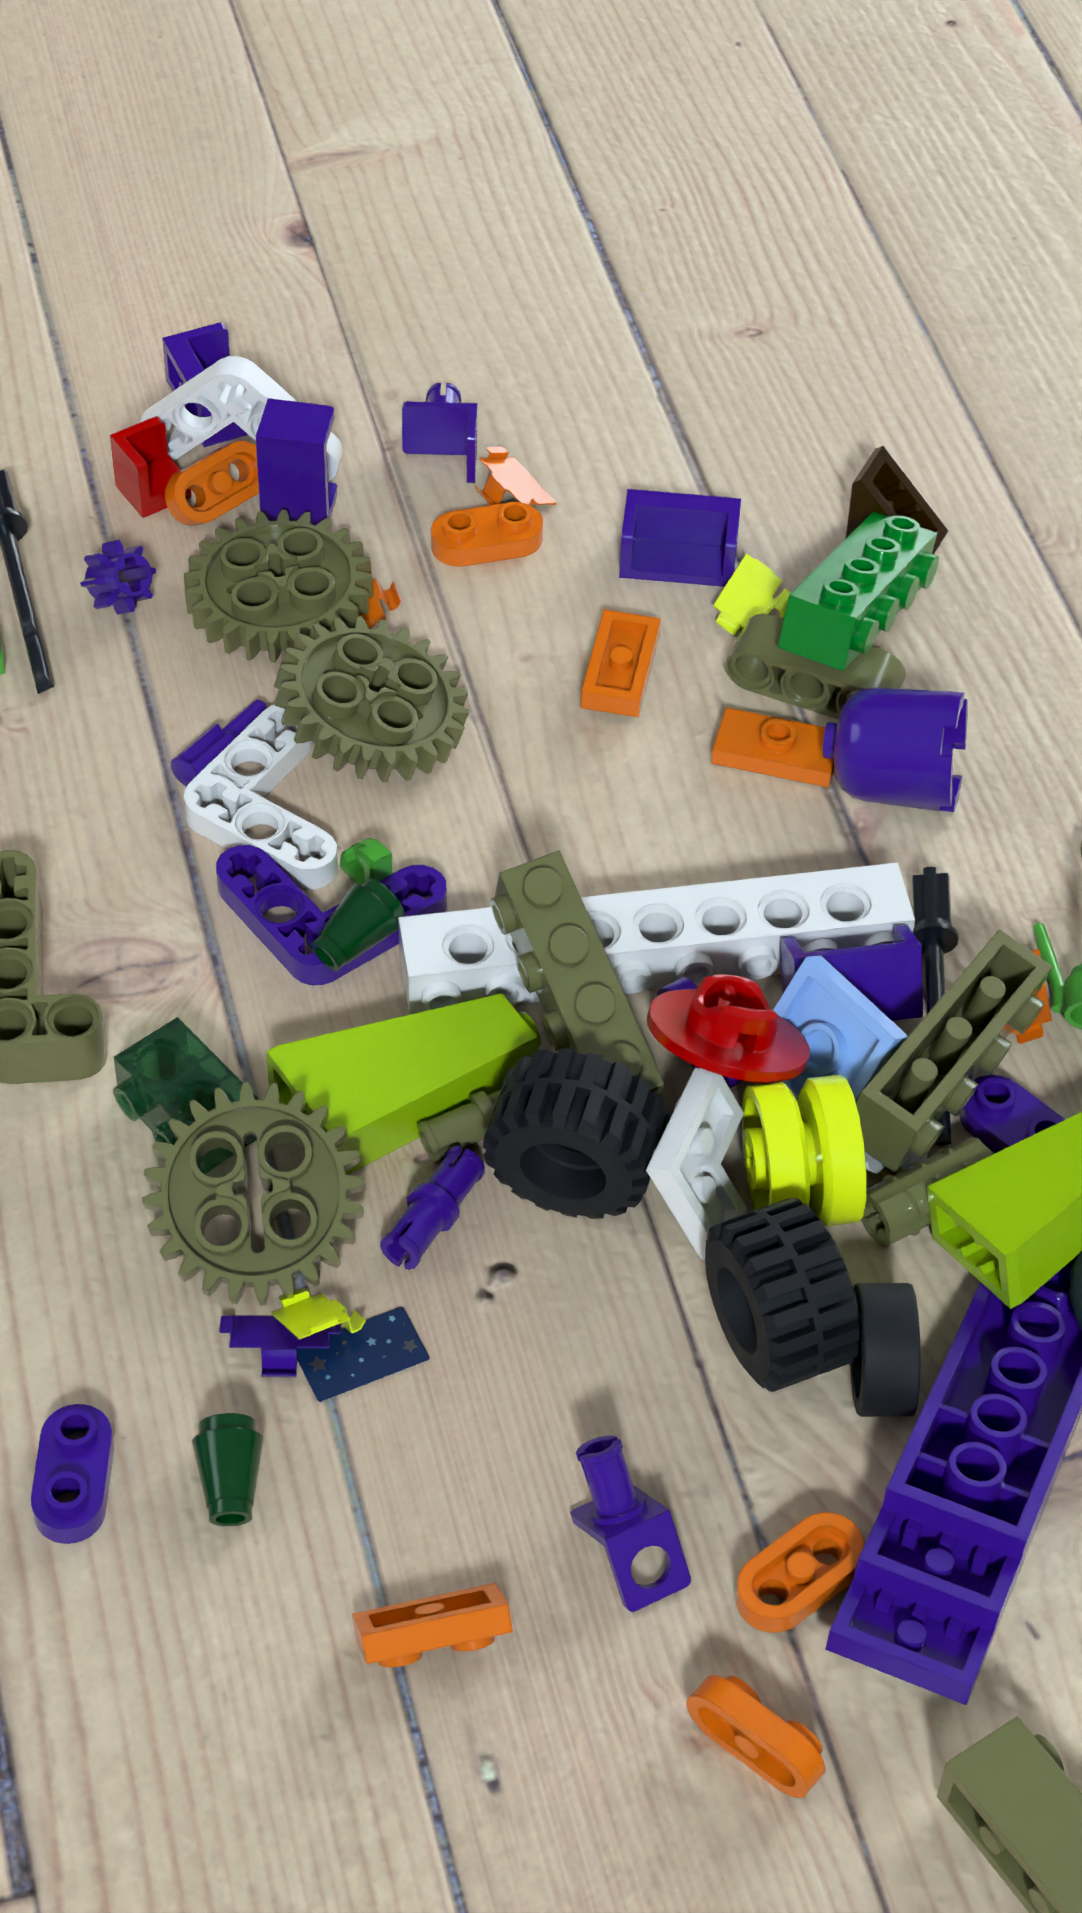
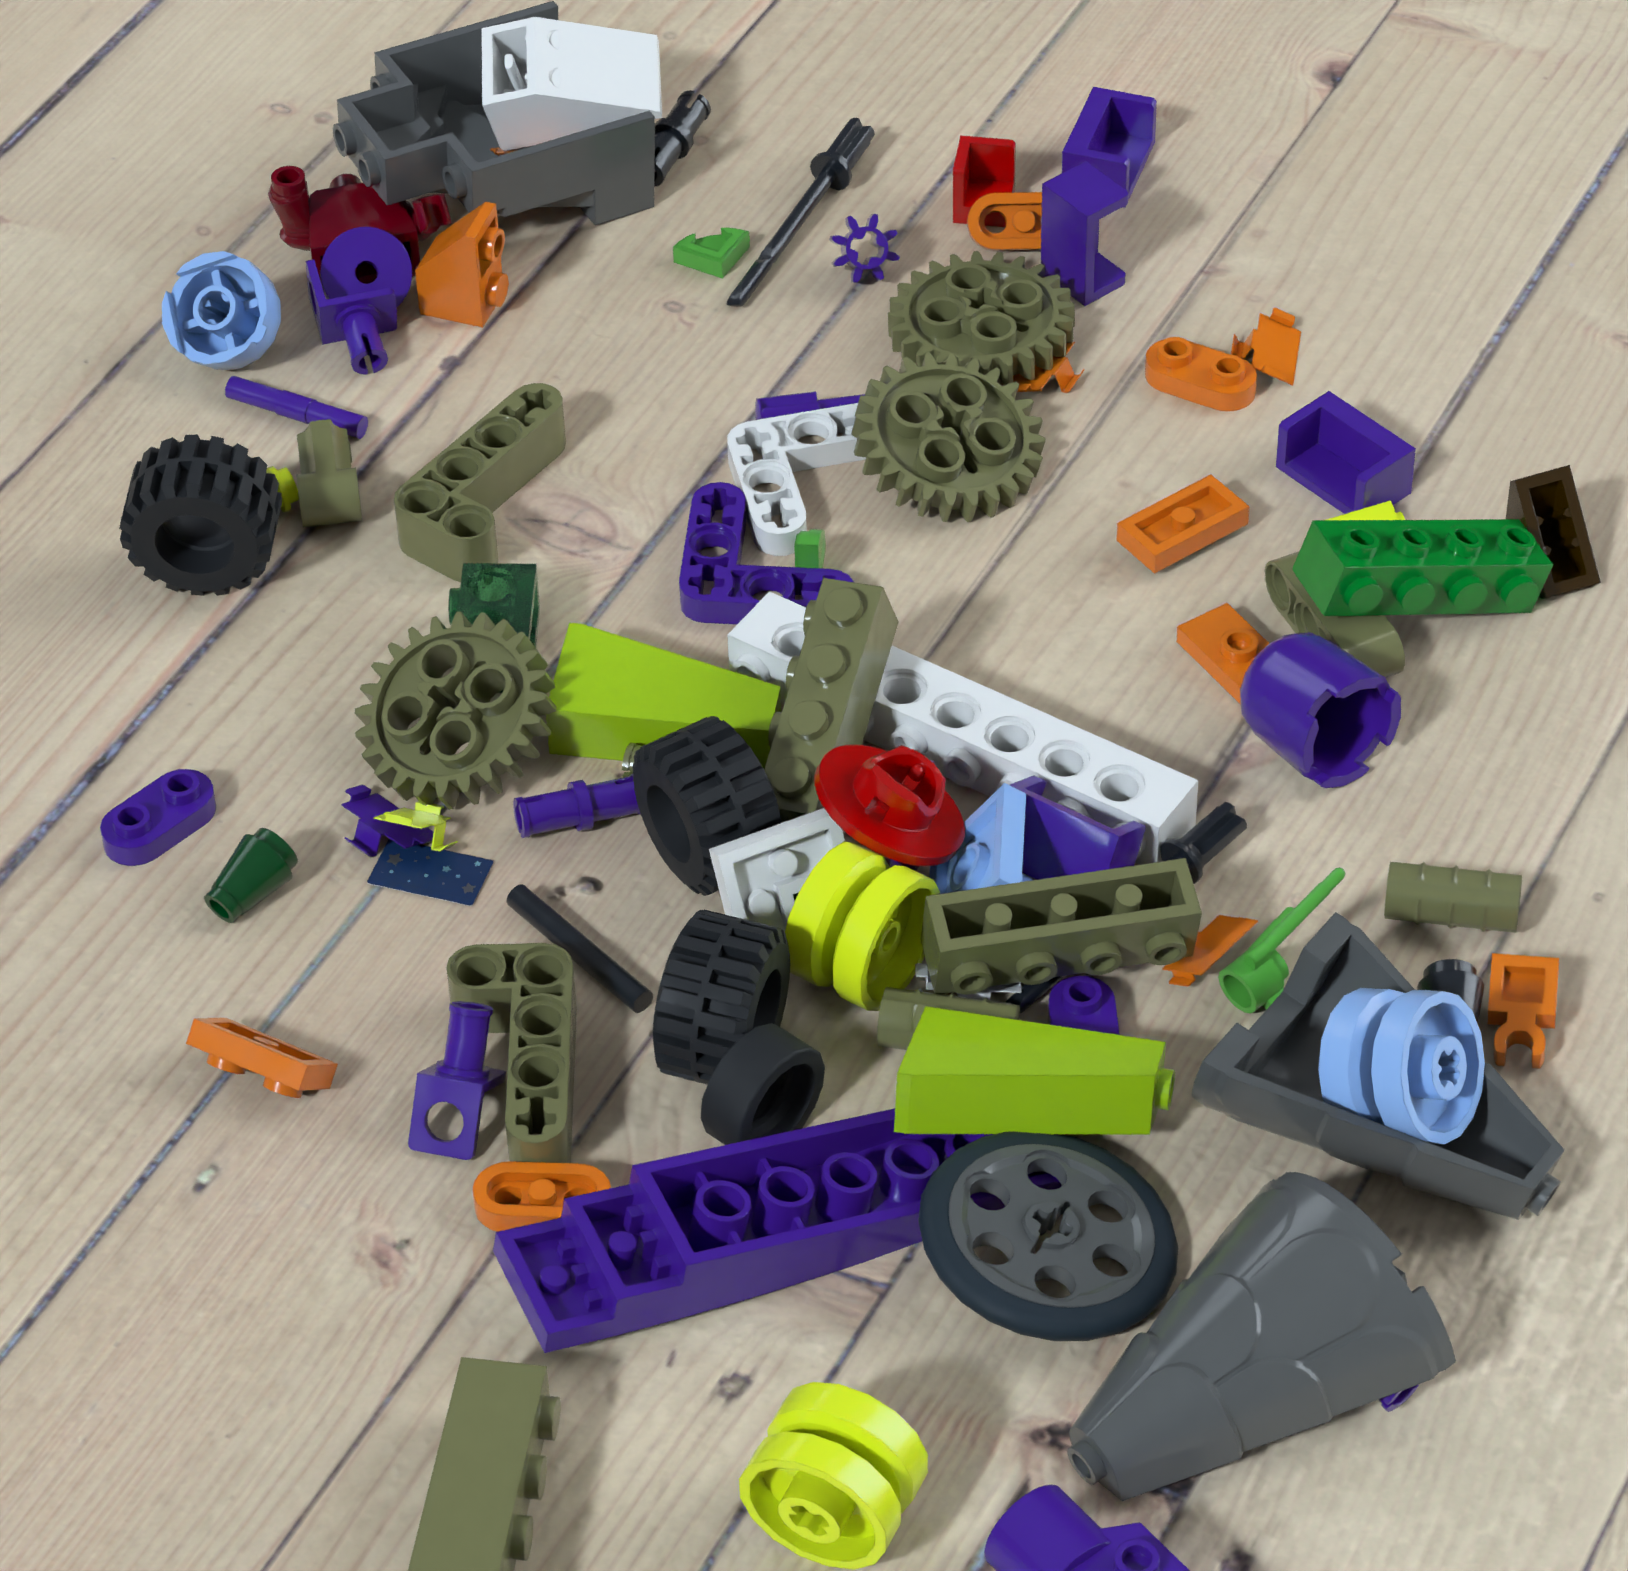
camera: 45 degrees right, 5 degrees down
(232, 392) = (1067, 144): white beam -> none
(359, 922) = (735, 579): dark green cone -> none
(441, 426) = (1254, 275): dark purple bracket -> none
(566, 1332) = (580, 948): none -> black bar
(727, 1513) = (536, 1004): none -> olive beam
(774, 1749) = (390, 1291): orange plate -> none

